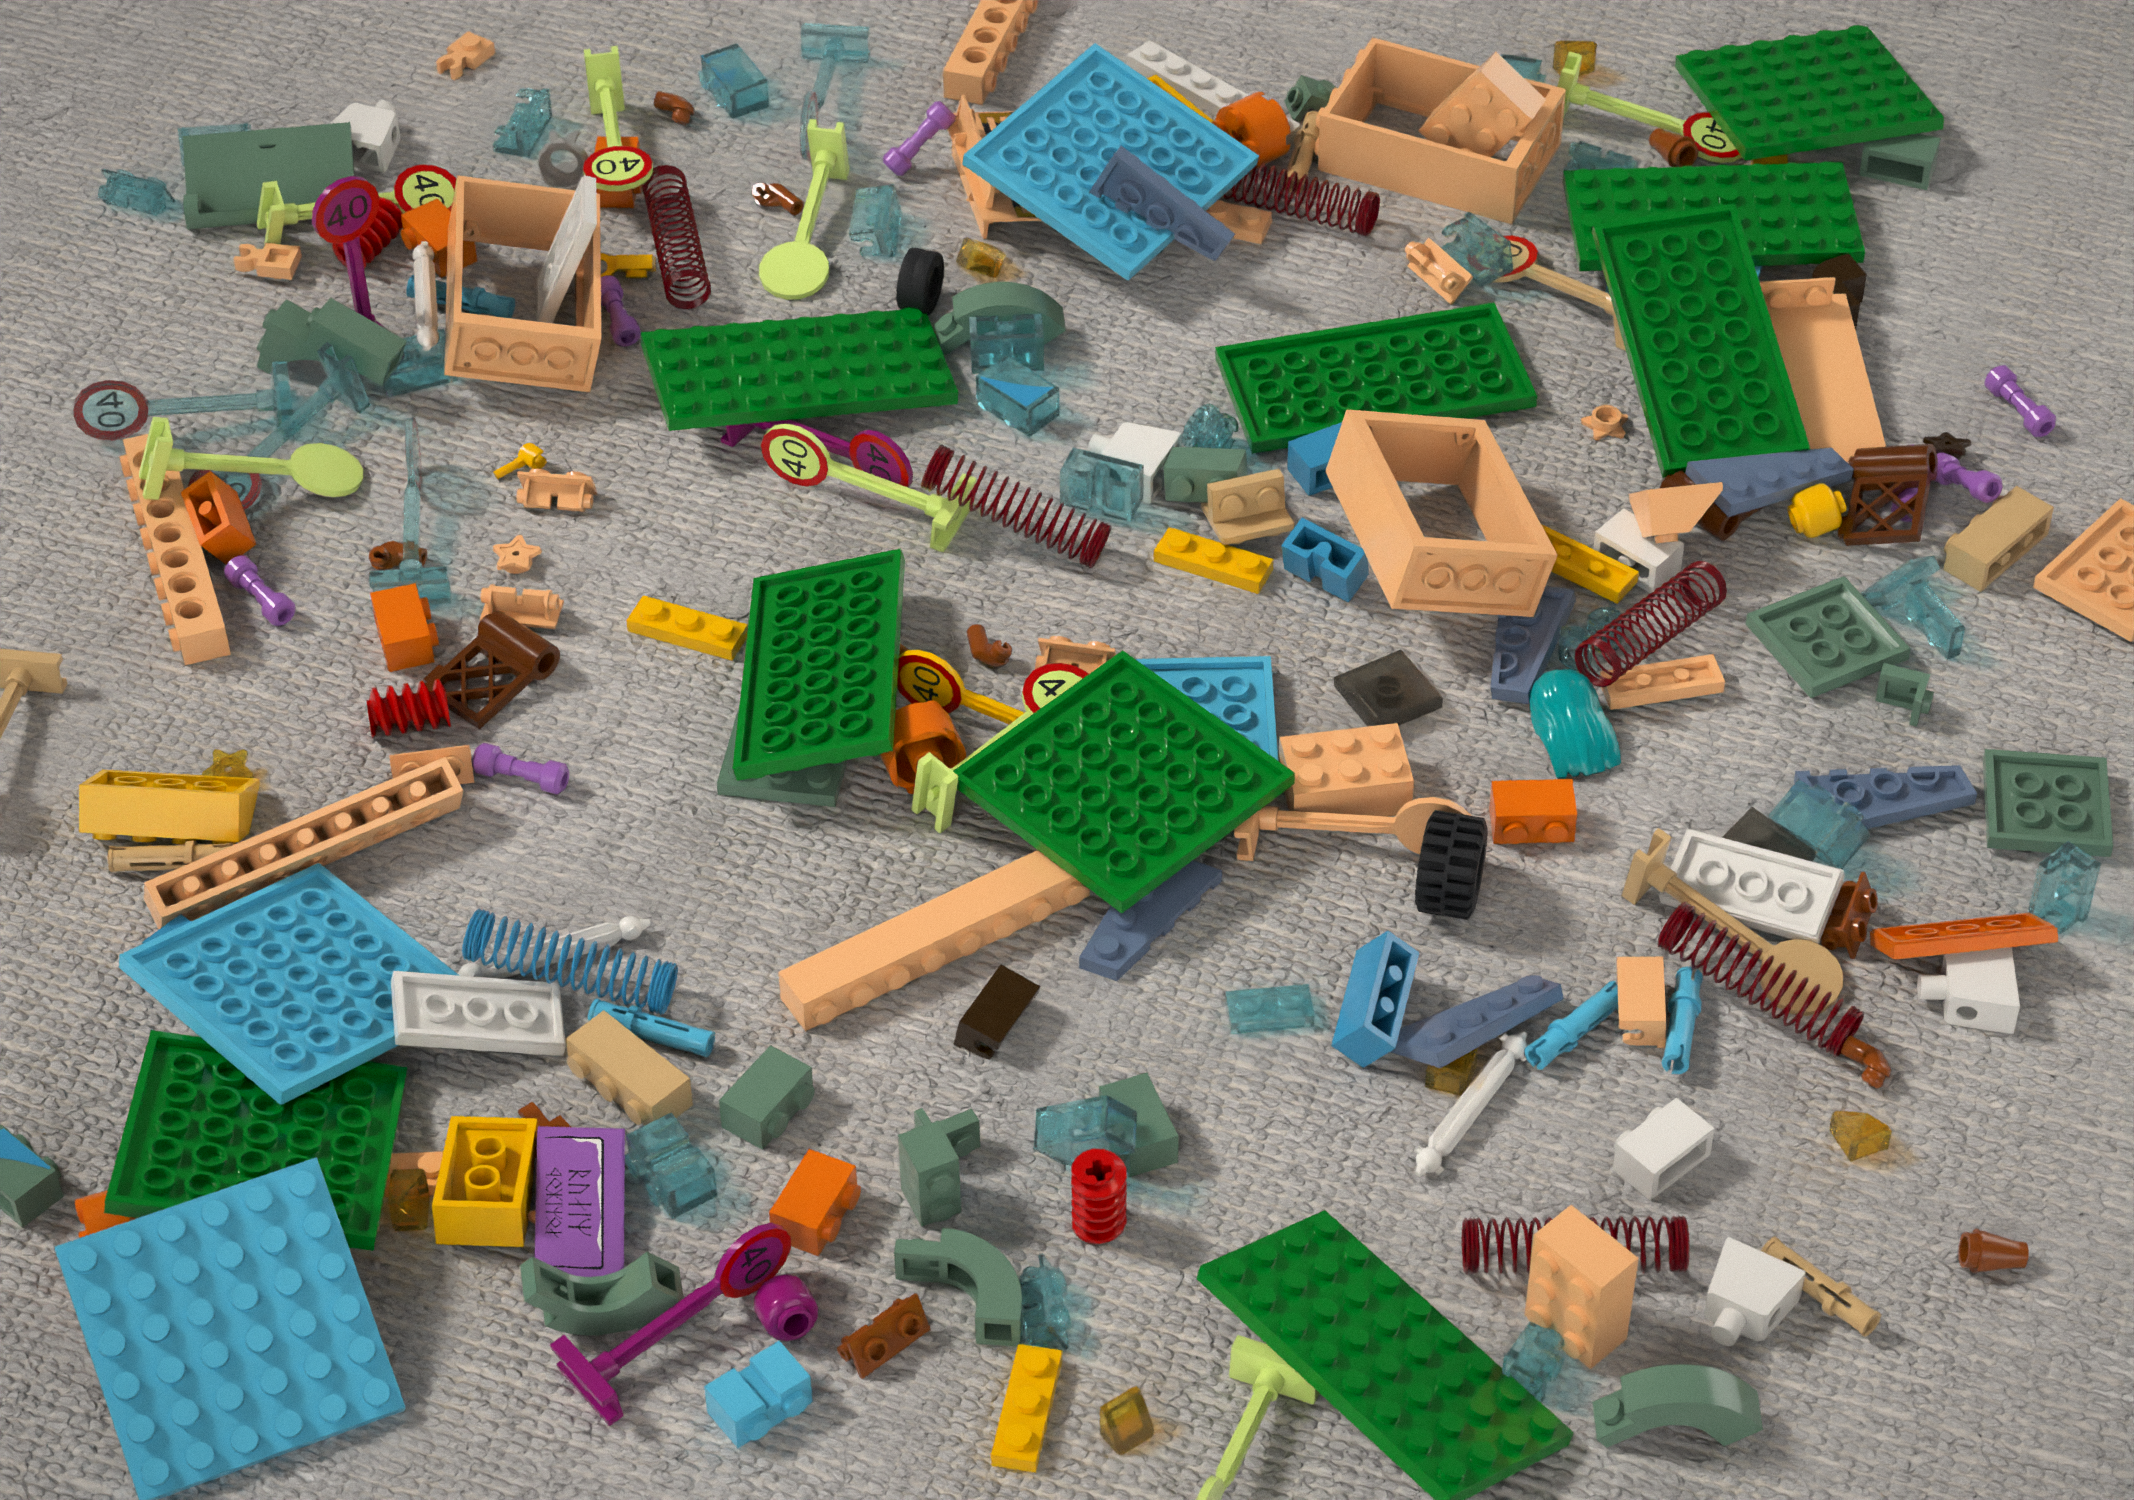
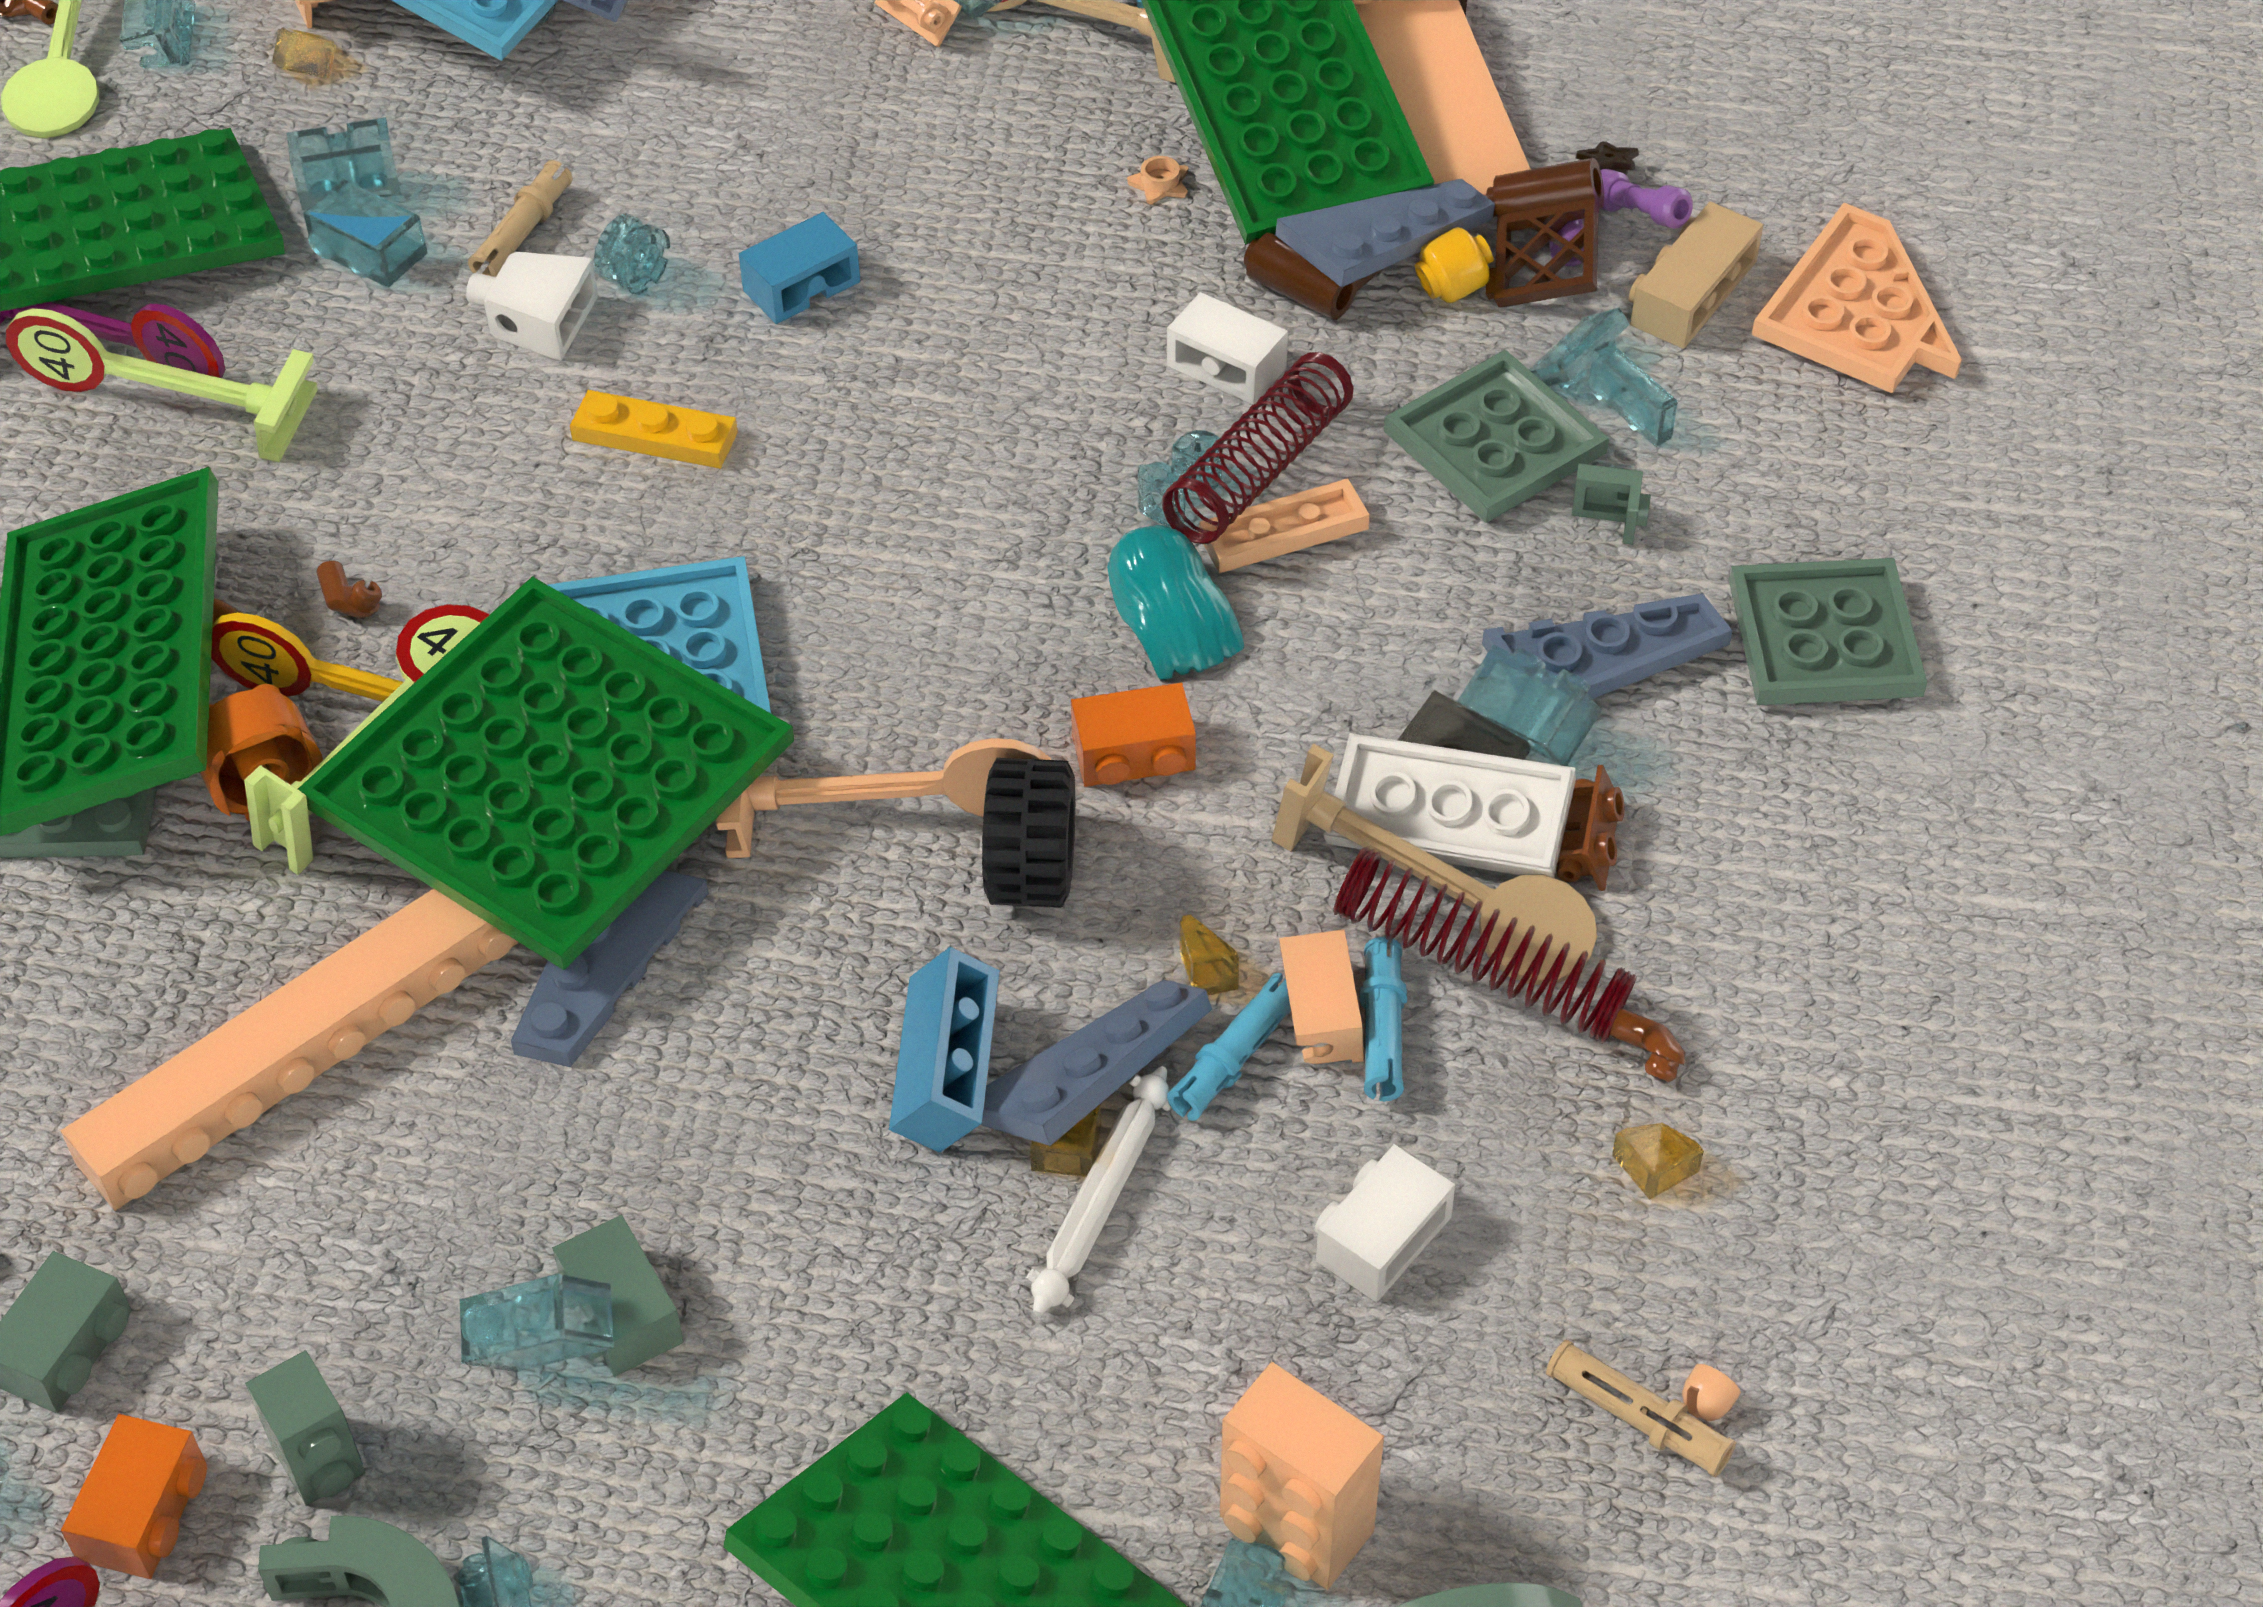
camera: 10 degrees left, 5 degrees up
(920, 280) = (220, 91): black tyre -> none
(935, 473) = (253, 342): dark red piece -> none
(961, 1129) = (342, 1354): sand green bracket -> none
(995, 1012) = (391, 1145): dark brown hinge -> none
(999, 300) = (331, 106): sand green arch -> none
(1063, 650) = (457, 587): light nougat hinge -> none
(1098, 1196) = (565, 1427): red piece -> none
(1102, 482) = (488, 338): clear light blue brick -> none
(1139, 389) = (531, 207): none -> tan pin
(1192, 468) = (630, 312): sand green brick -> none
(1248, 507) = (692, 350): tan bracket -> none
(1269, 1009) = (795, 1081): clear light blue plate -> none
(1320, 553) = (795, 402): dark azure brick -> none
(1348, 771) = (869, 711): light nougat brick -> none
(1388, 691) = (913, 587): clear smoke plate -> none
(1414, 365) = (847, 149): green plate -> none
(1440, 573) = (959, 413): light nougat door -> none
(1527, 645) = (1092, 485): sand blue wing -> none
(1565, 965) = (1207, 958): none -> clear yellow slope
(1591, 568) = (1151, 374): yellow plate -> none
(1672, 509) = (1266, 286): light nougat slope -> none
(1677, 1234) = (1424, 1351): dark red piece -> none
(1750, 1293) = (1542, 1436): white torso -> none
(1869, 1283) = (1709, 1393): none -> light nougat hinge
(1963, 935) = (1751, 840): orange tile -> none
(1976, 989) = (1781, 915): white torso -> none
(1989, 1252) = (1870, 1316): dark orange cone -> none
(2037, 419) = (1717, 111): medium lavender piece -> none
(2064, 886) = (1877, 752): clear light blue hinge -> none

